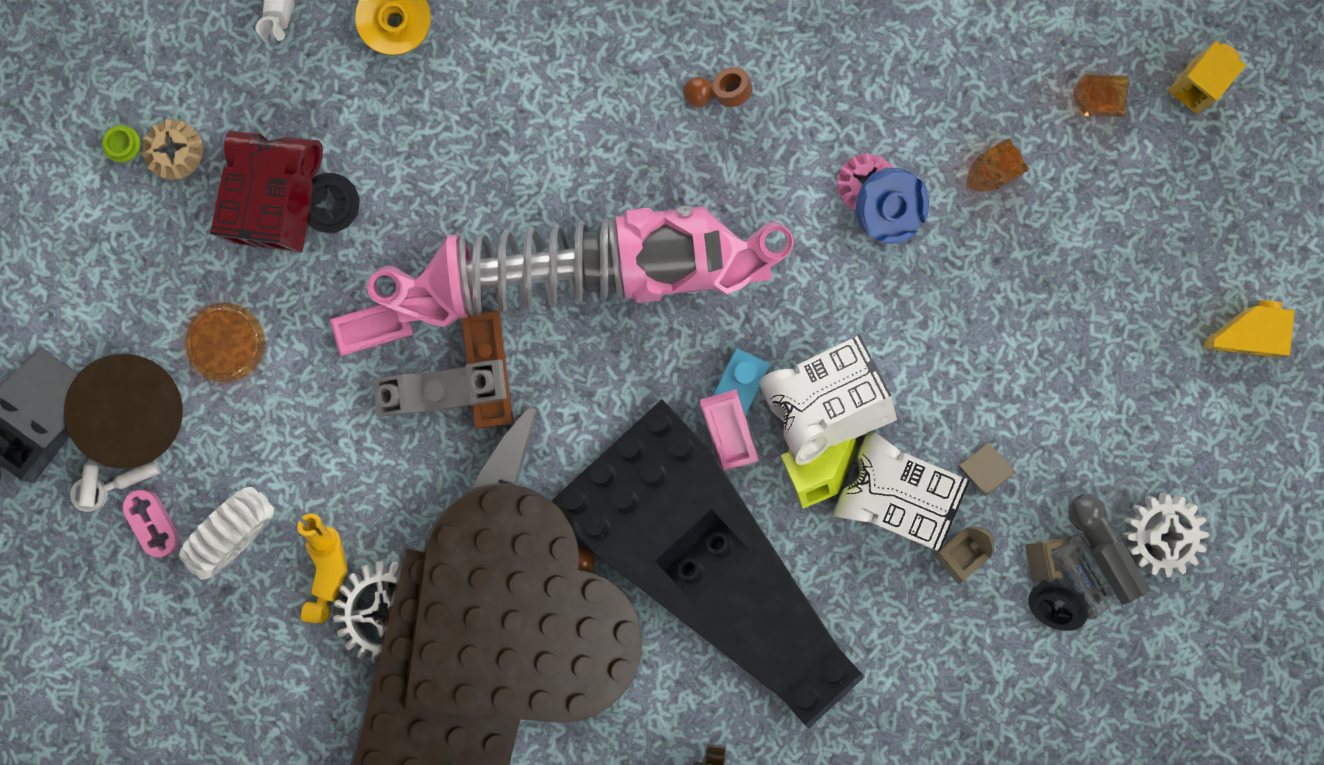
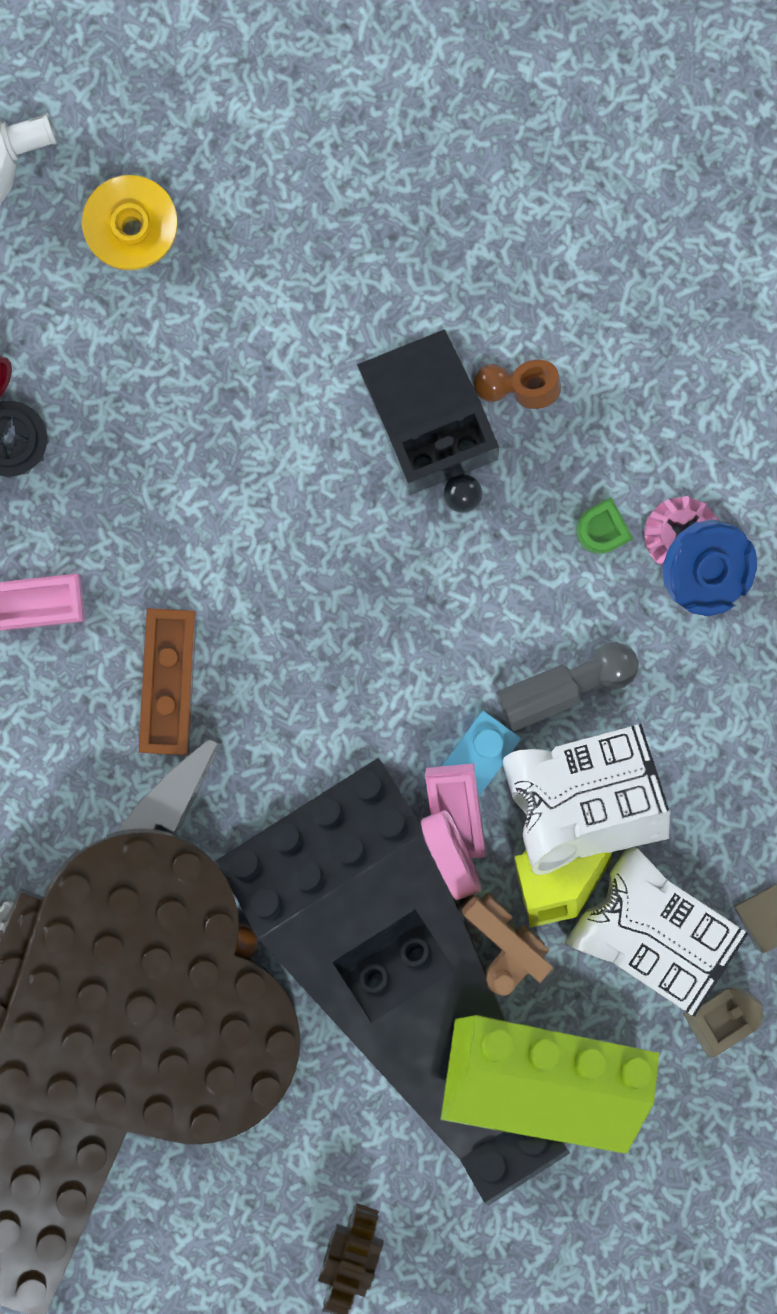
camera: 10 degrees right, 0 degrees up
(440, 389) = (101, 696): light grey slope -> none
(631, 255) = (371, 572): piece -> none
(652, 123) = (426, 413): none -> black slope
(731, 462) = (450, 855): none -> bright pink beam
(795, 319) = (561, 688): none -> dark grey piece
(799, 525) = (521, 949): none -> medium nougat plate
(804, 190) = (602, 528): none -> bright green tile
(837, 623) = (548, 1084): none -> lime slope

